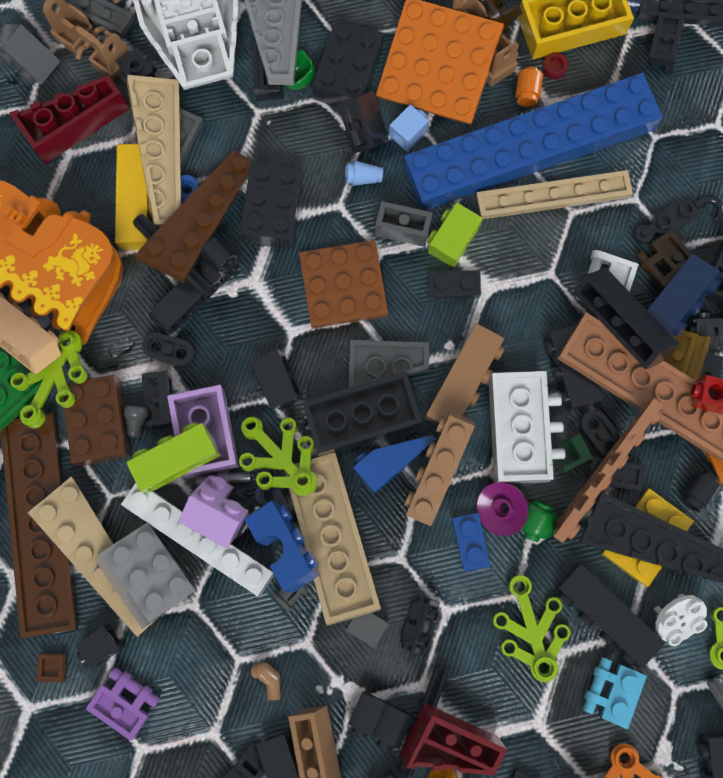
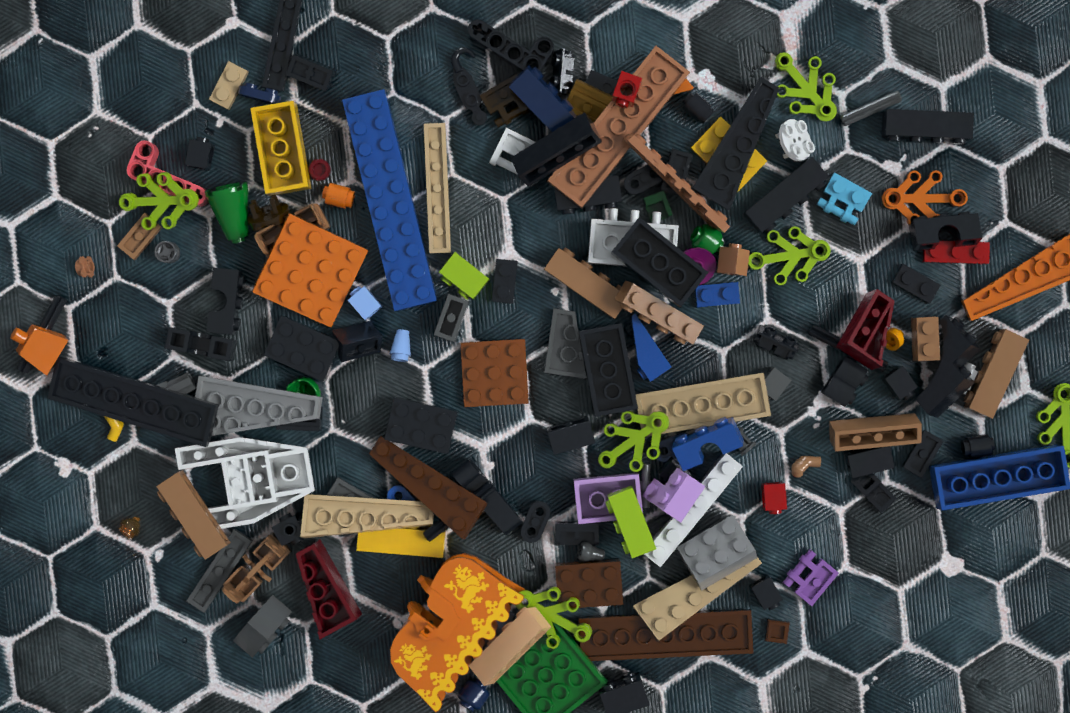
camera: 85 degrees left, 10 degrees up
(222, 643) = (774, 497): none -> red brick
(506, 456) = (659, 262): none -> black brick
(517, 556) = (733, 260): none -> nougat brick

